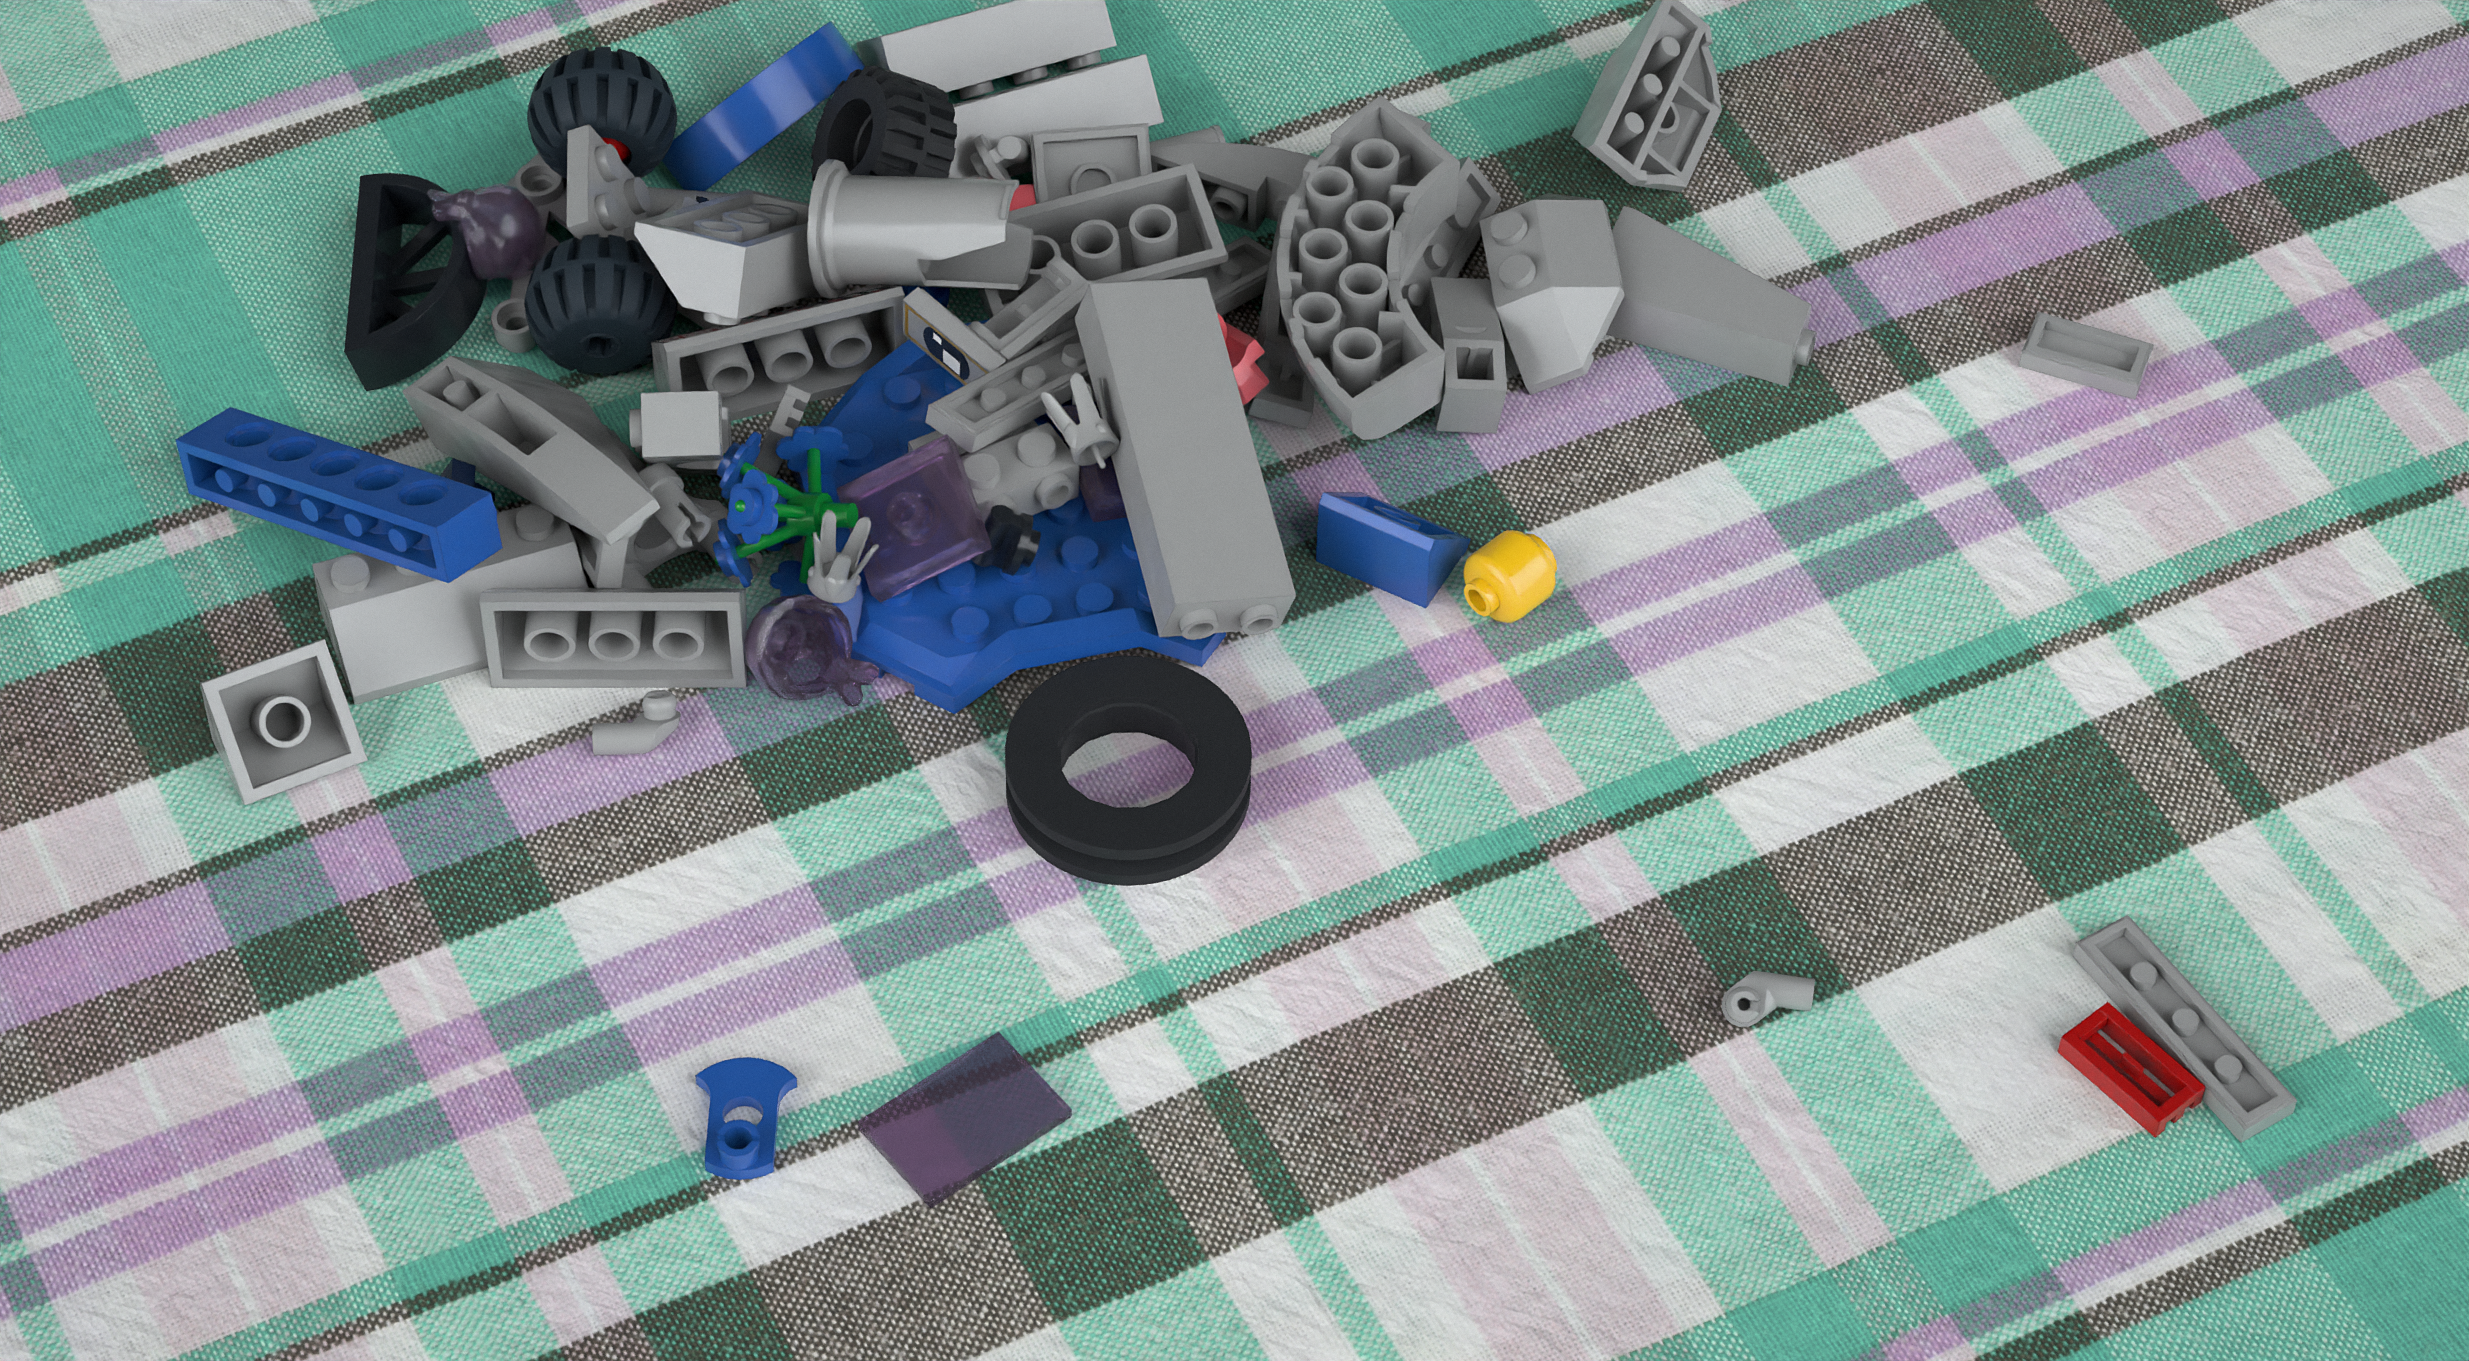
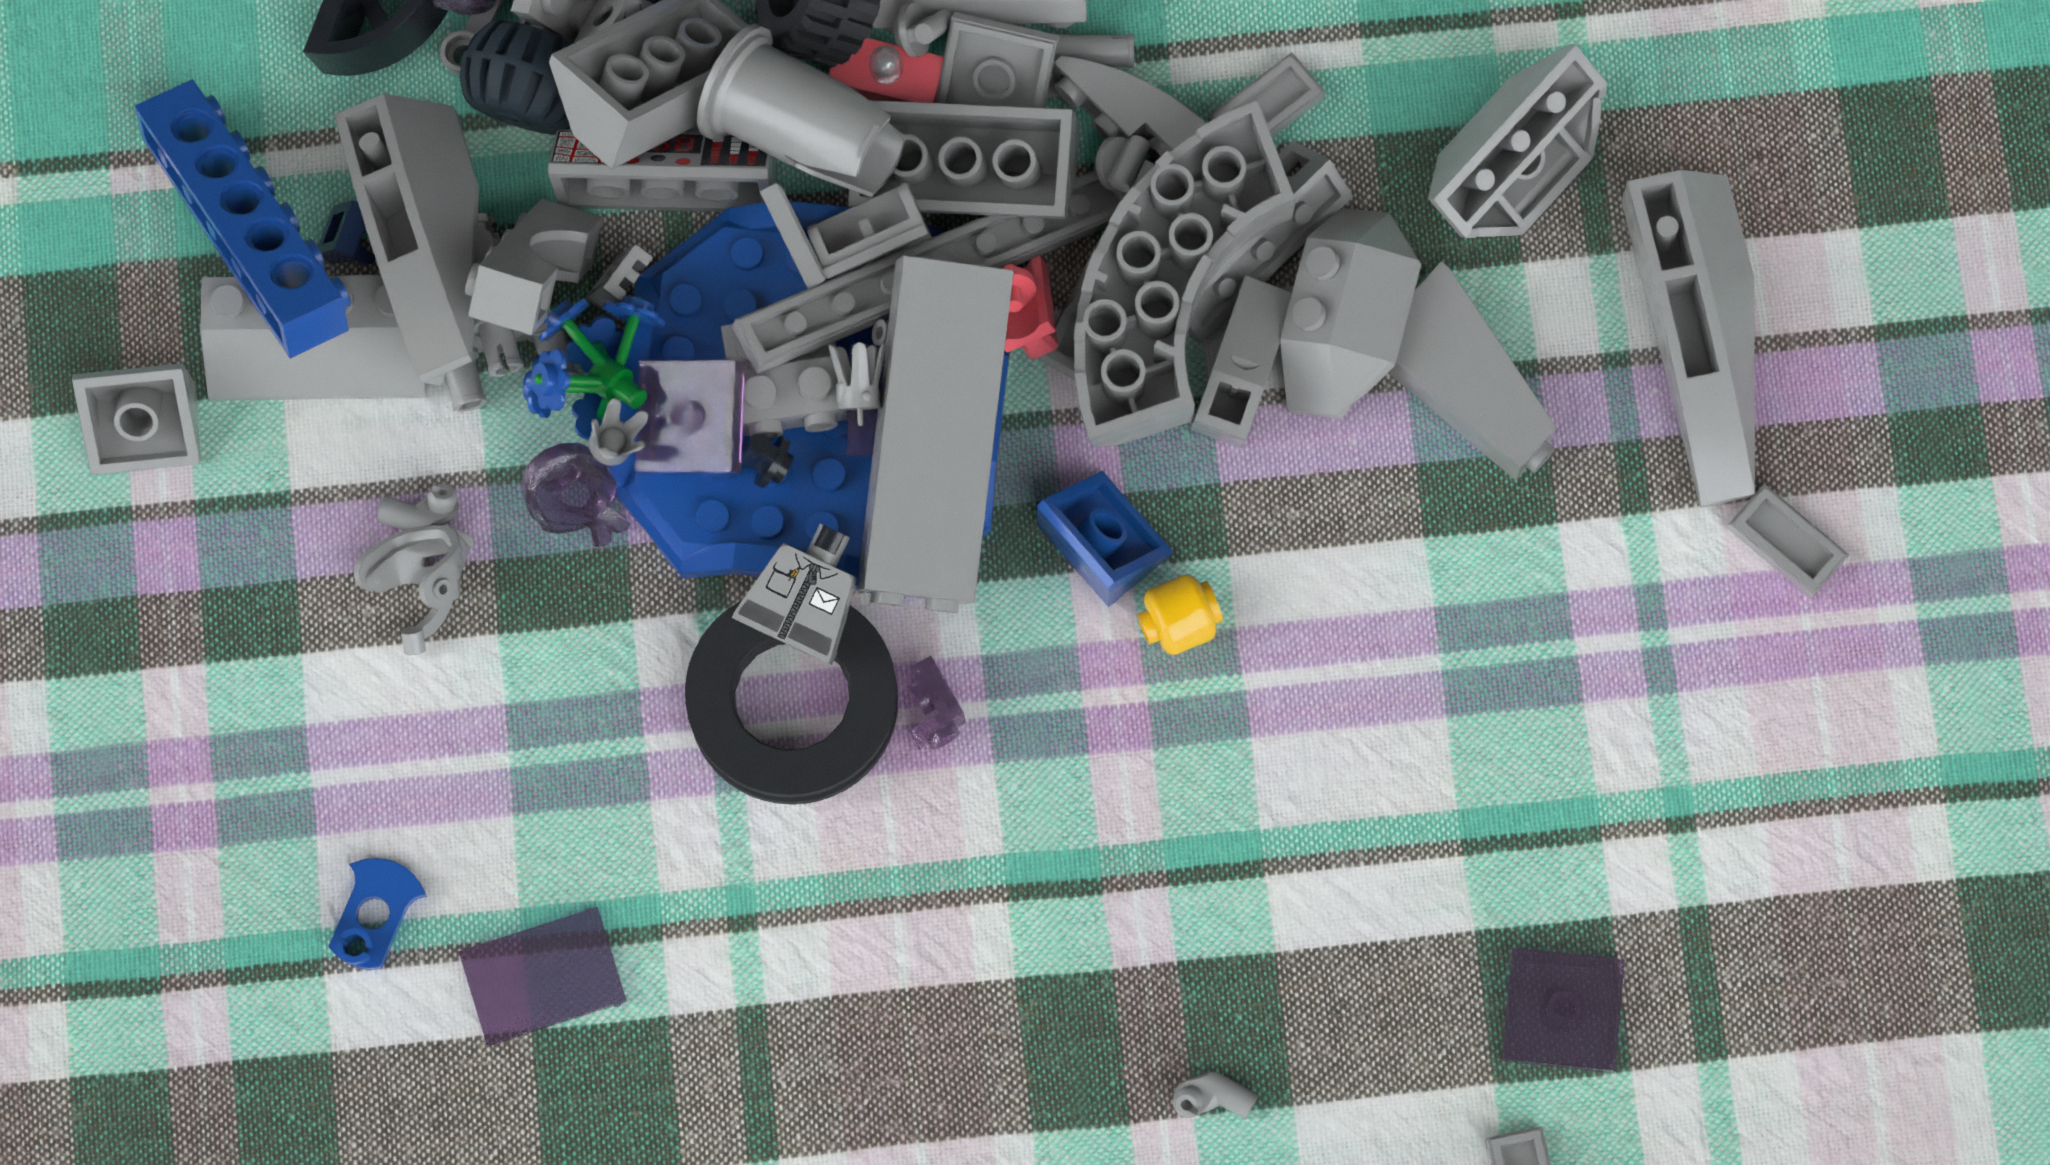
camera: 25 degrees right, 25 degrees up
(615, 637) = (426, 418): light grey slope -> none
(636, 776) = (402, 561): none -> light grey helmet
(1108, 647) = (803, 596): none -> light grey torso
(1257, 218) = (1120, 161): none -> light grey plate
(1289, 725) = (935, 695): none -> clear purple bracket
(1897, 198) = (1703, 320): none -> light grey wedge
(2089, 810) = (1562, 1010): none -> clear purple plate

